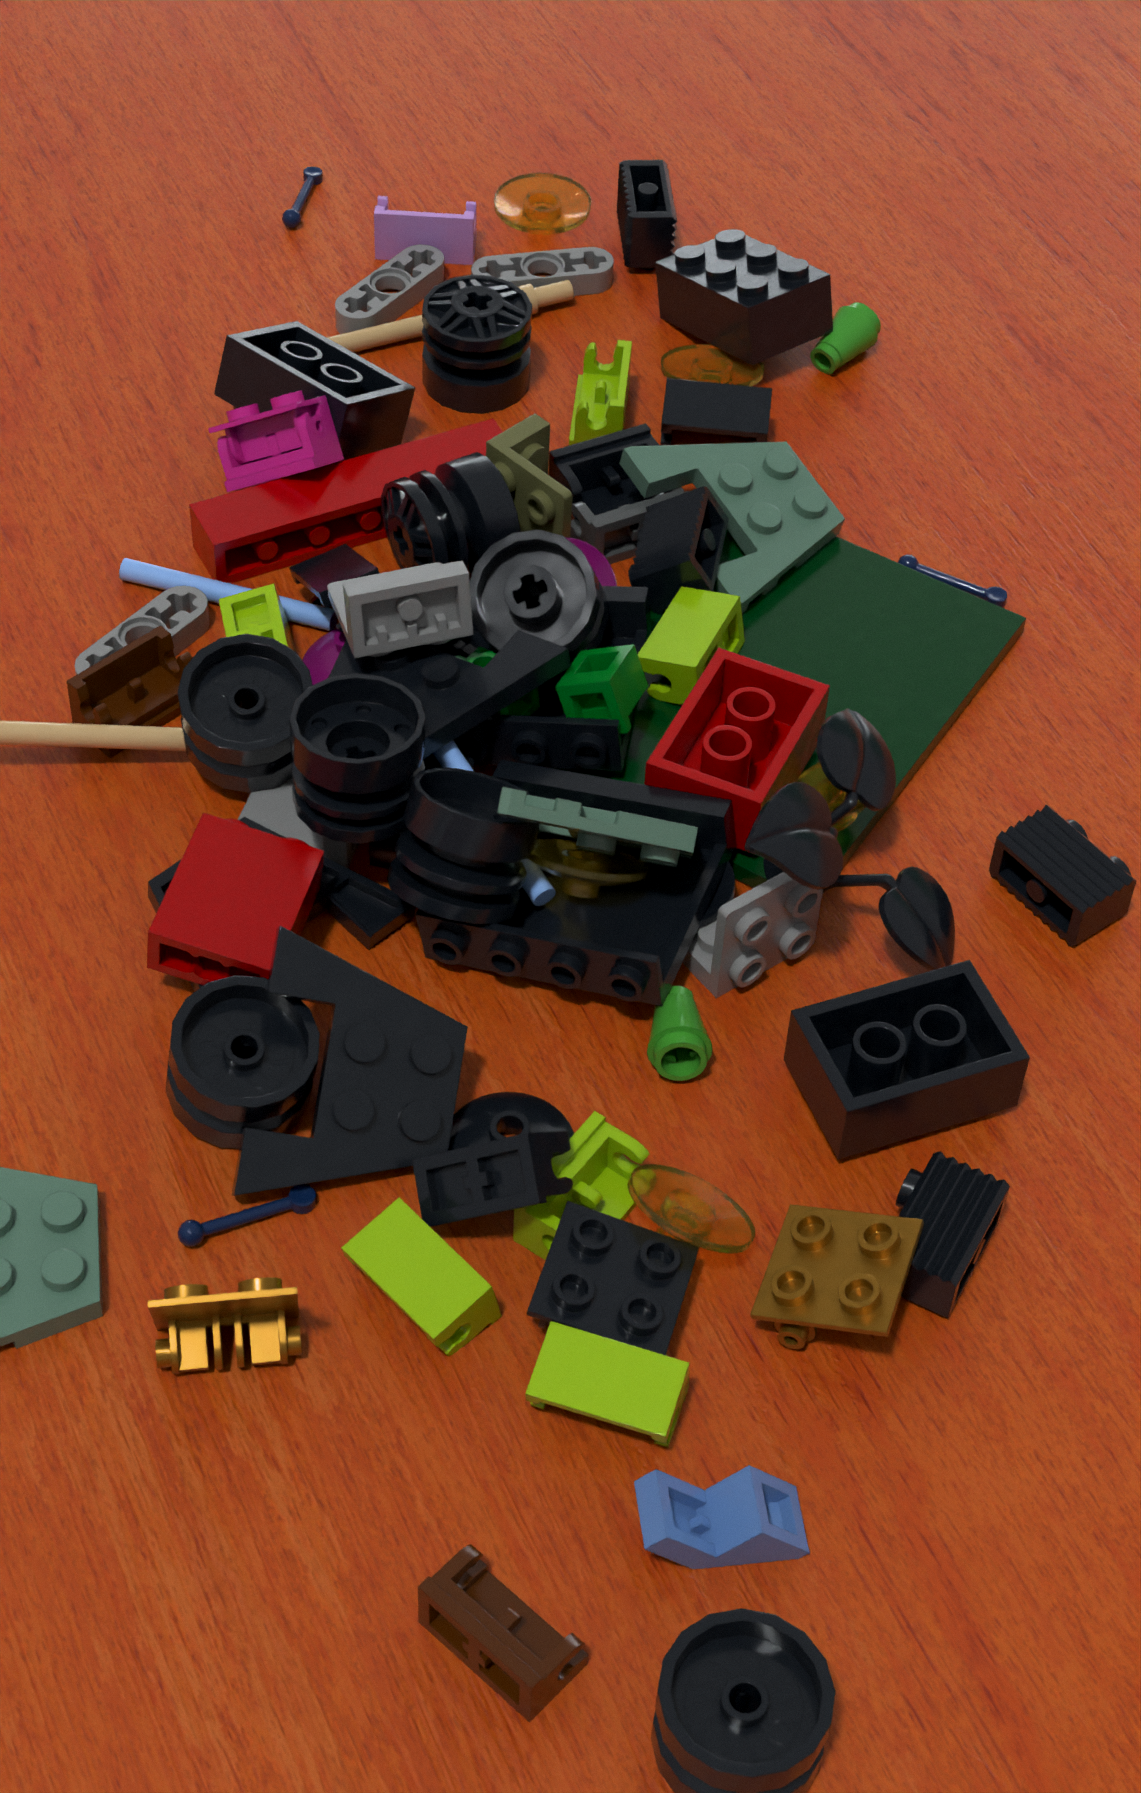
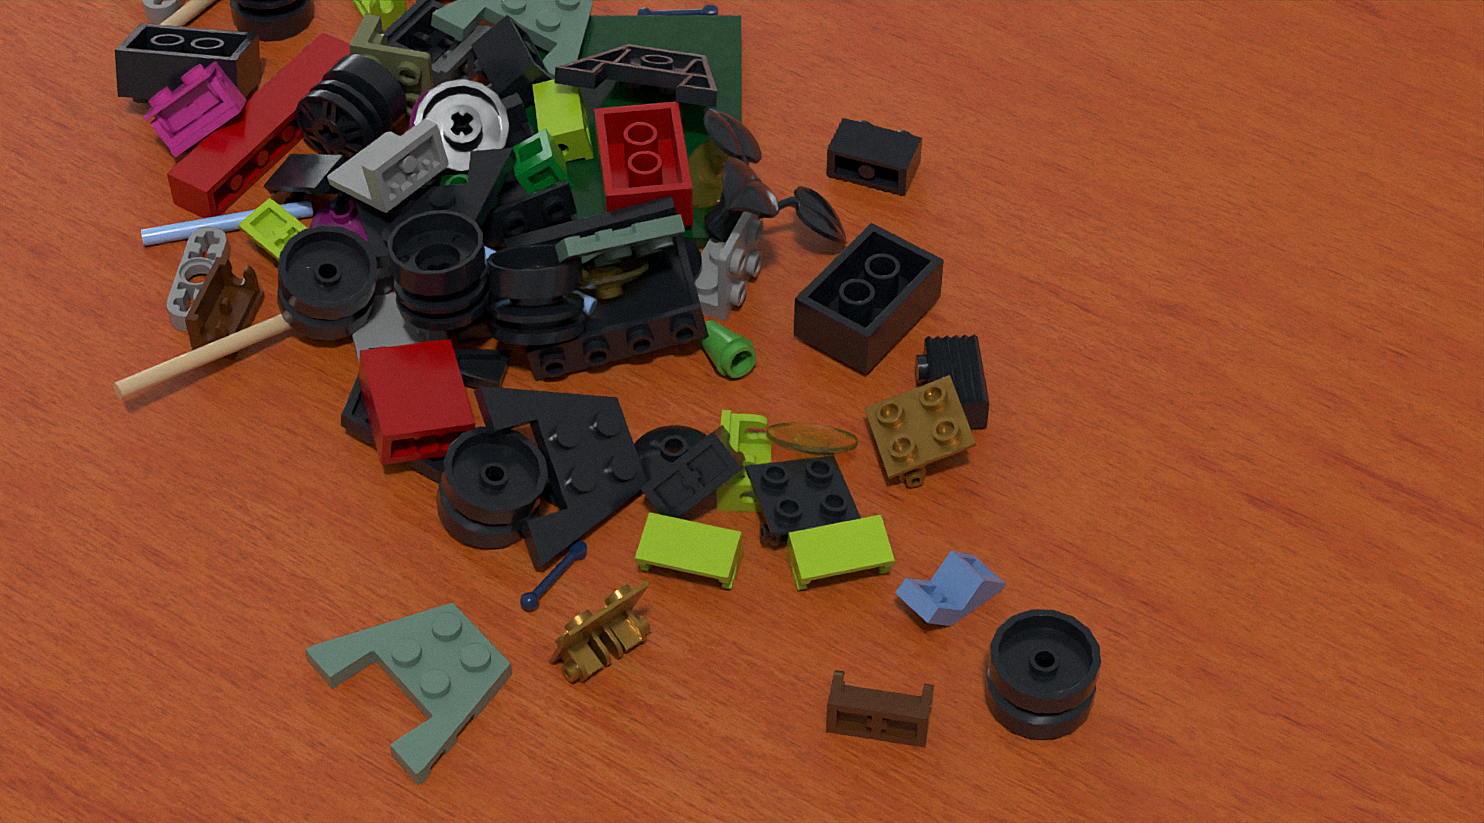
camera: 30 degrees left, 0 degrees up
(868, 649) = (634, 66): none -> black wing

